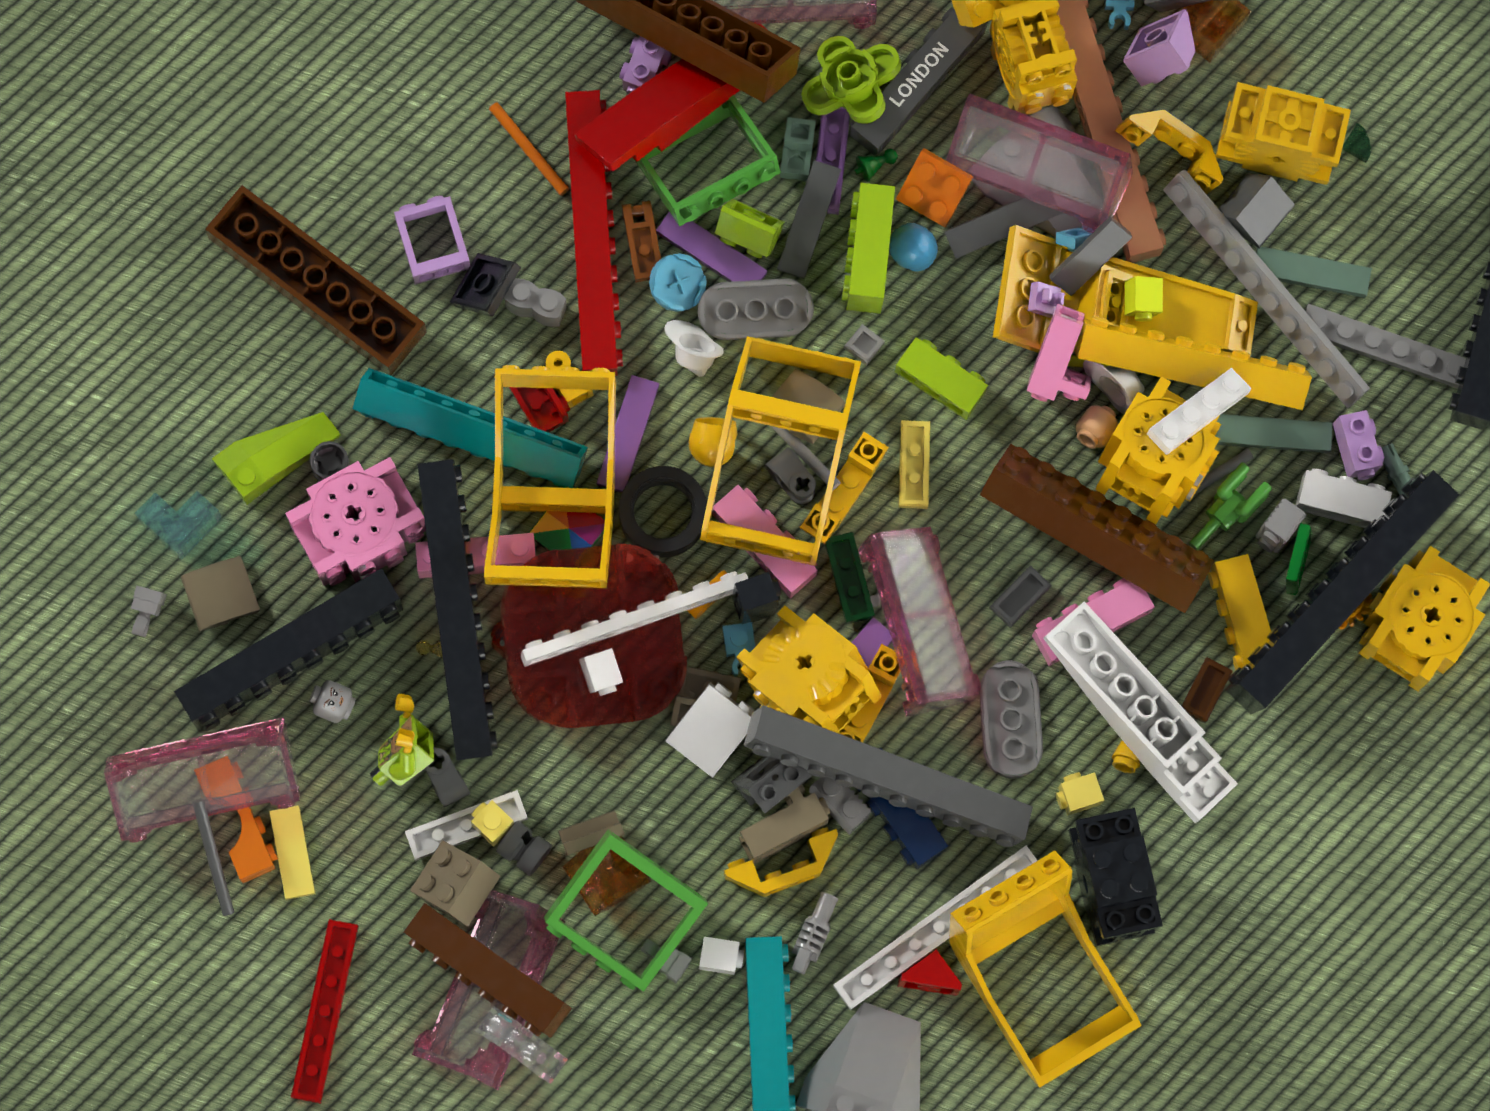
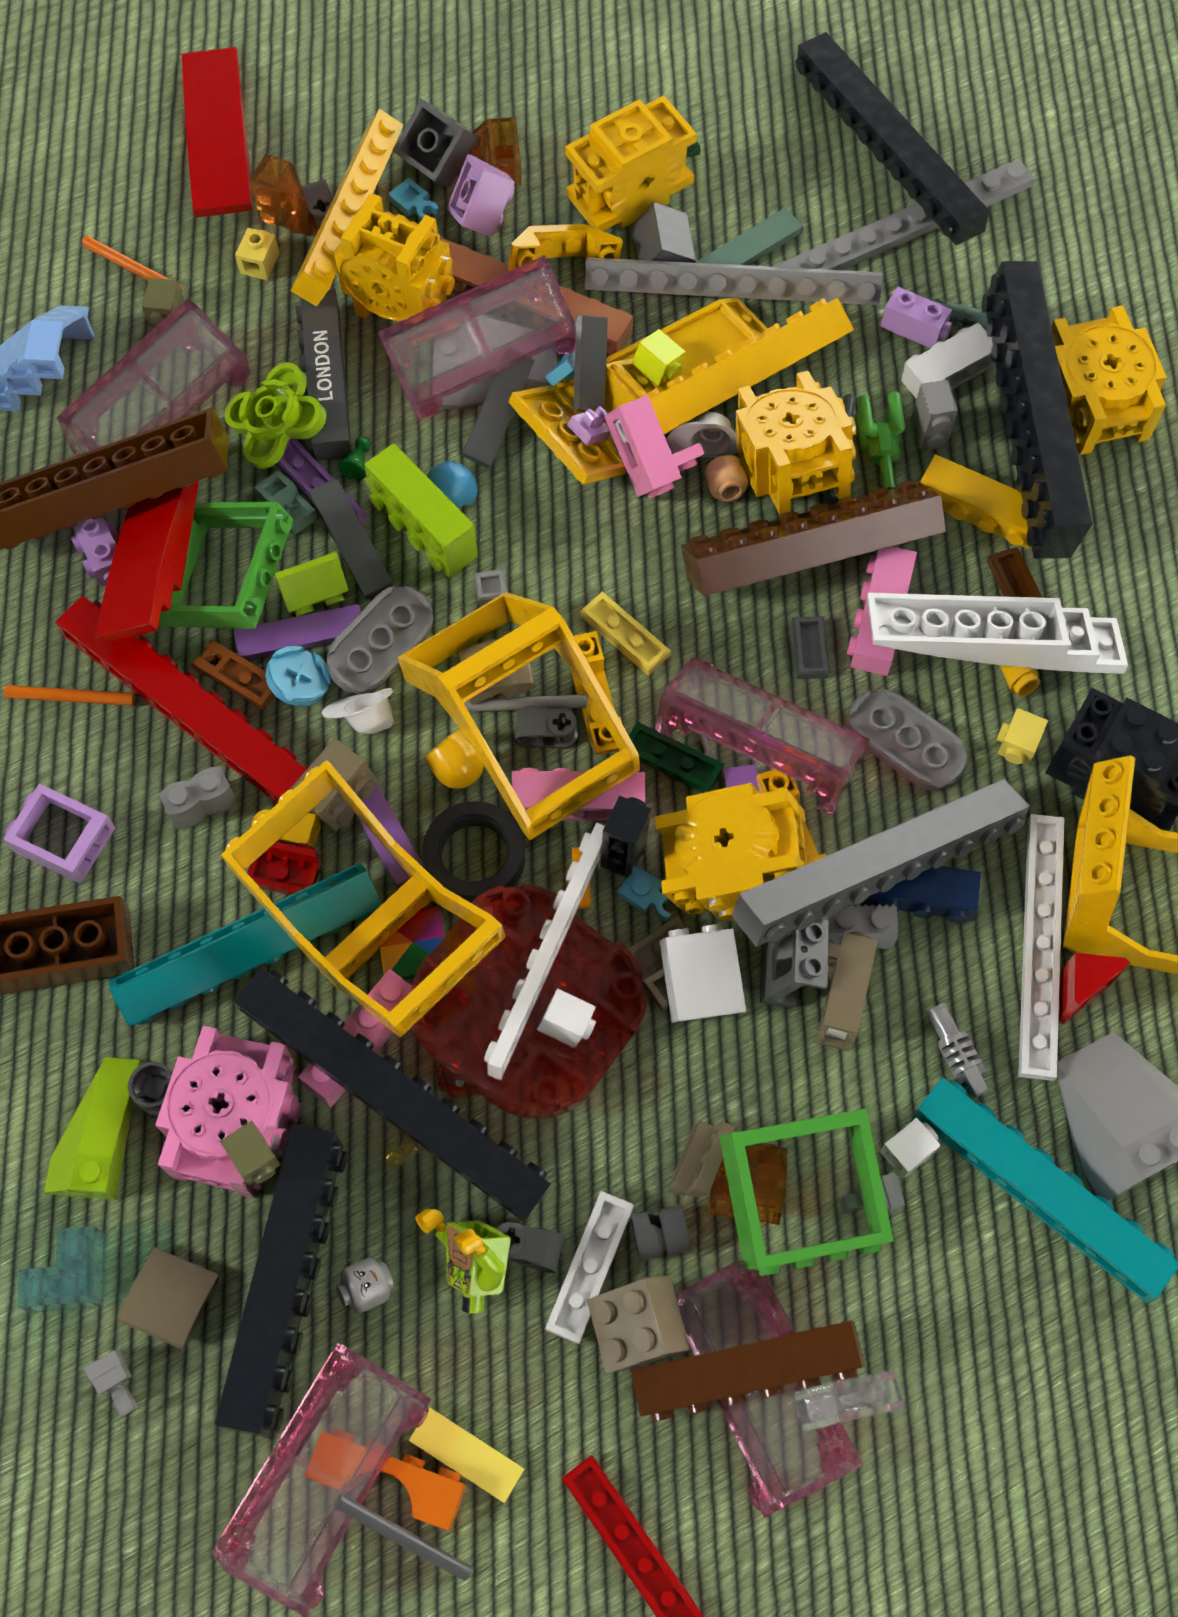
camera: 40 degrees left, 10 degrees down
(339, 562) = (251, 1154): none -> olive brick
(485, 284) = (141, 822): black tile -> none
(491, 822) = (612, 1238): light yellow brick -> none
(633, 383) = (354, 770): none -> dark tan brick
(746, 876) = (889, 982): yellow slope -> none
(934, 187) = (422, 428): orange plate -> none
(941, 377) = (576, 552): lime brick -> none
(1198, 411) = (794, 382): white plate -> none
(1275, 433) = (859, 361): sand green tile -> none
(1298, 559) = (974, 424): green tile -> none

